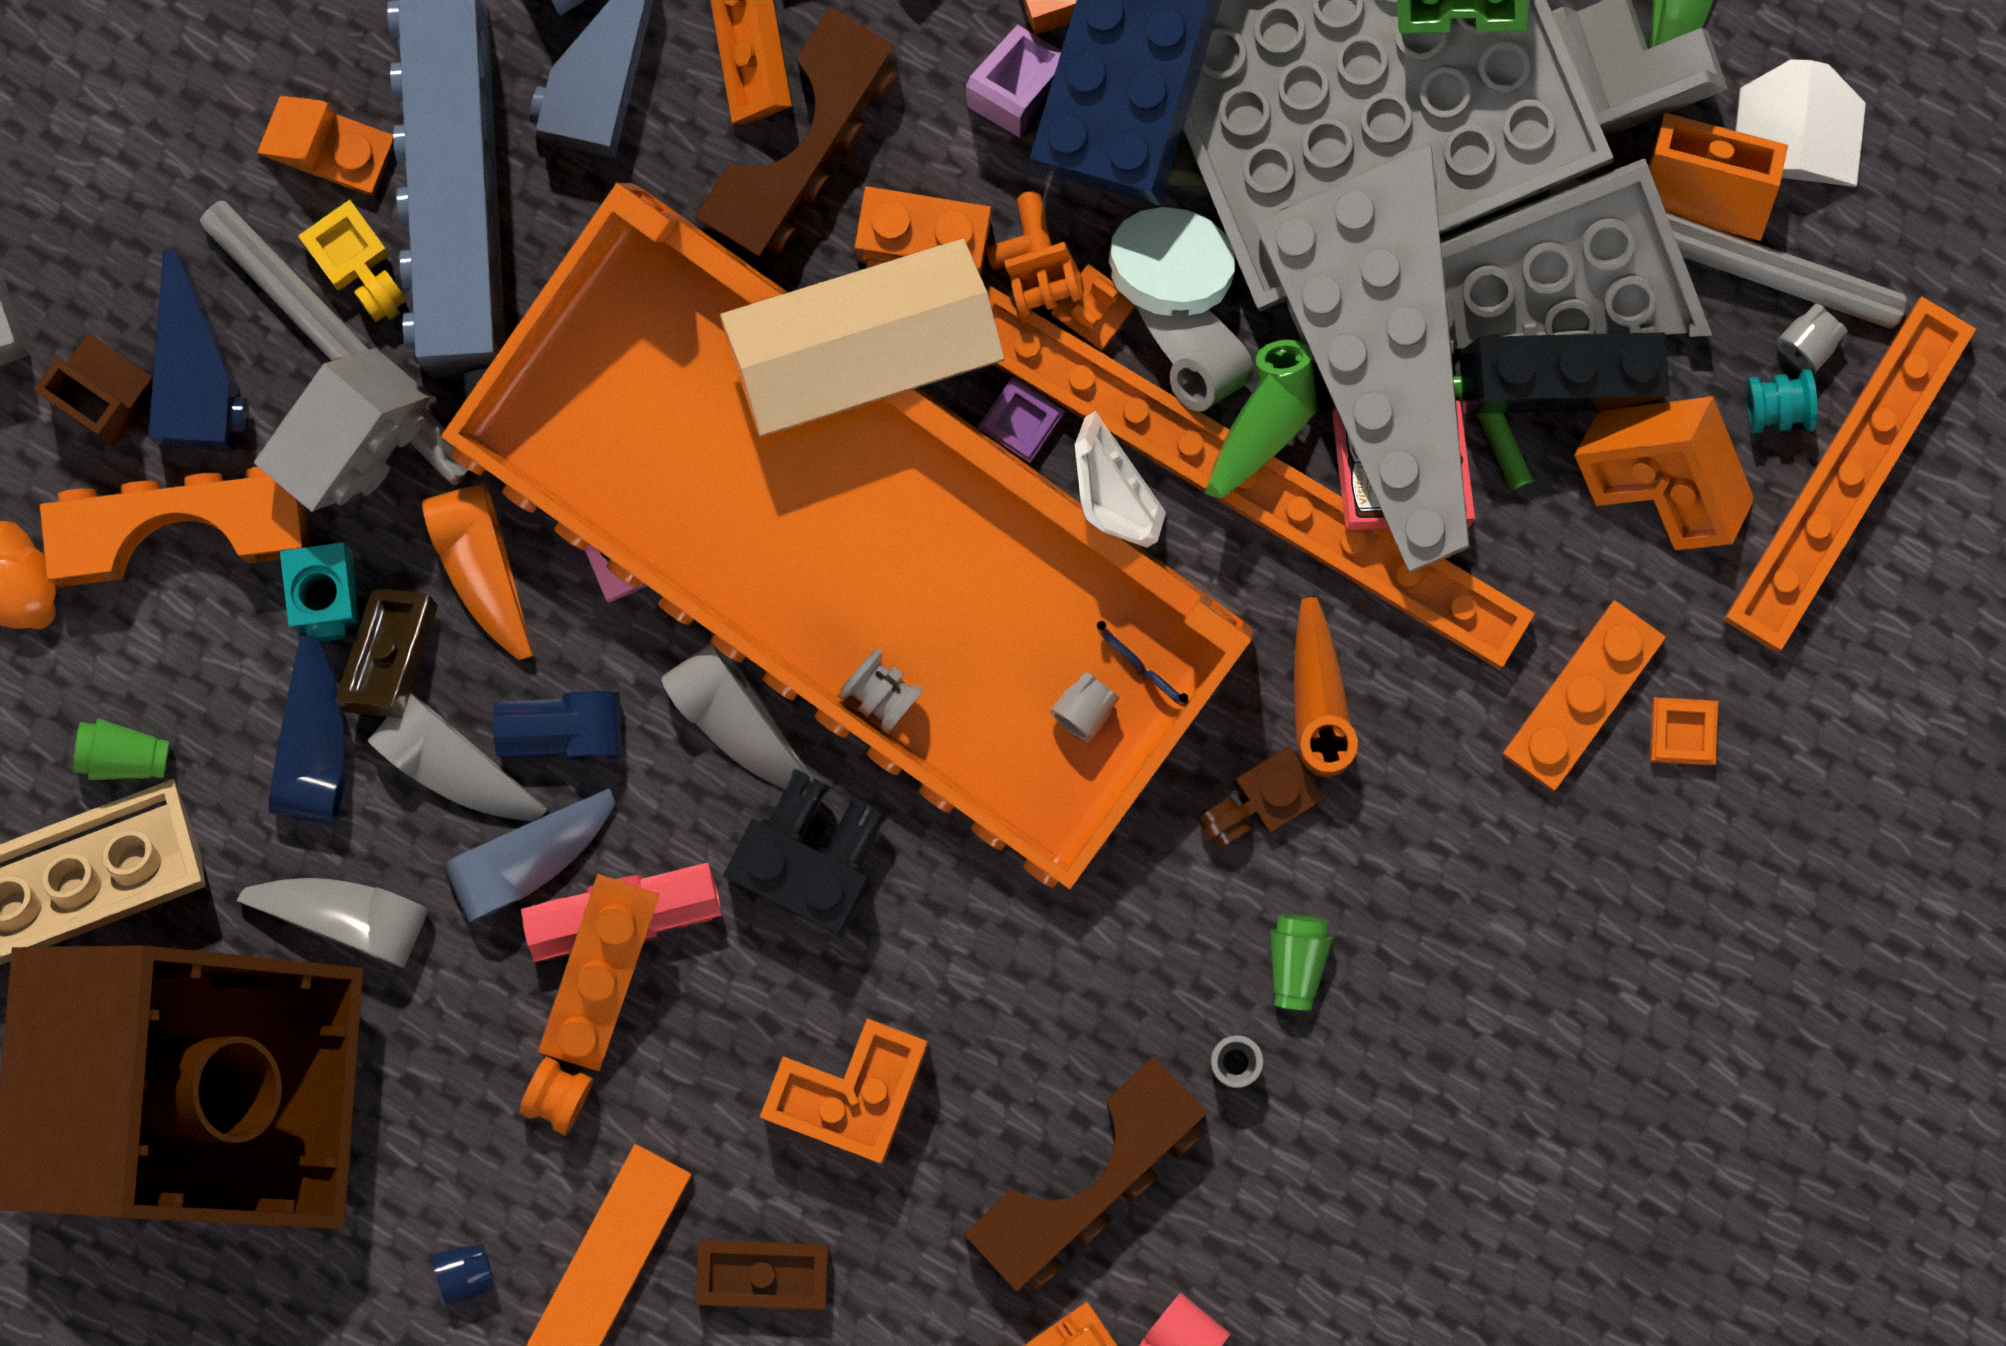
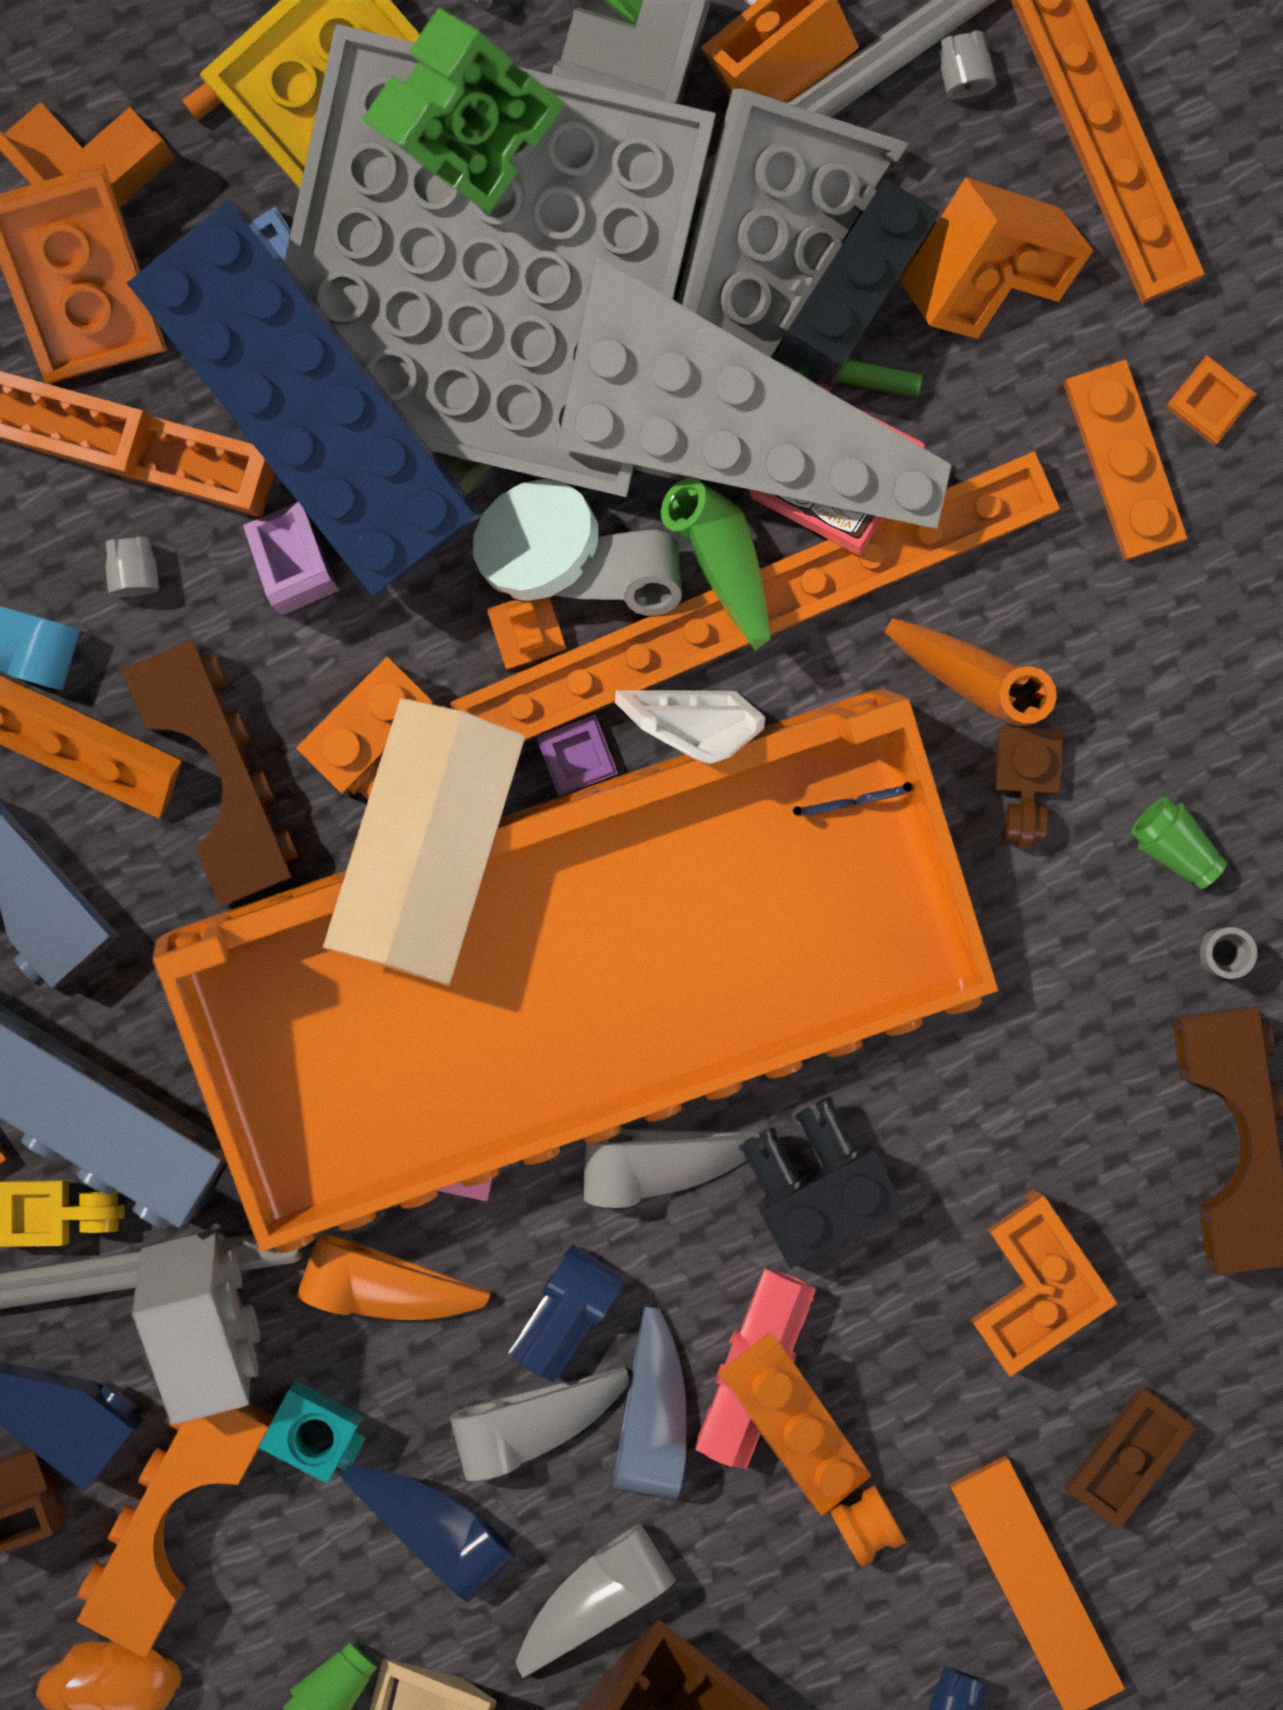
camera: 60 degrees left, 5 degrees up
(386, 653) = (405, 1414): dark brown plate -> none
(880, 691) = (726, 1030): light grey bush -> none
(1036, 269) = (463, 655): orange arm -> none
(1084, 707) = (854, 871): light grey hose -> none
(1782, 402) = (1002, 126): teal bush -> none

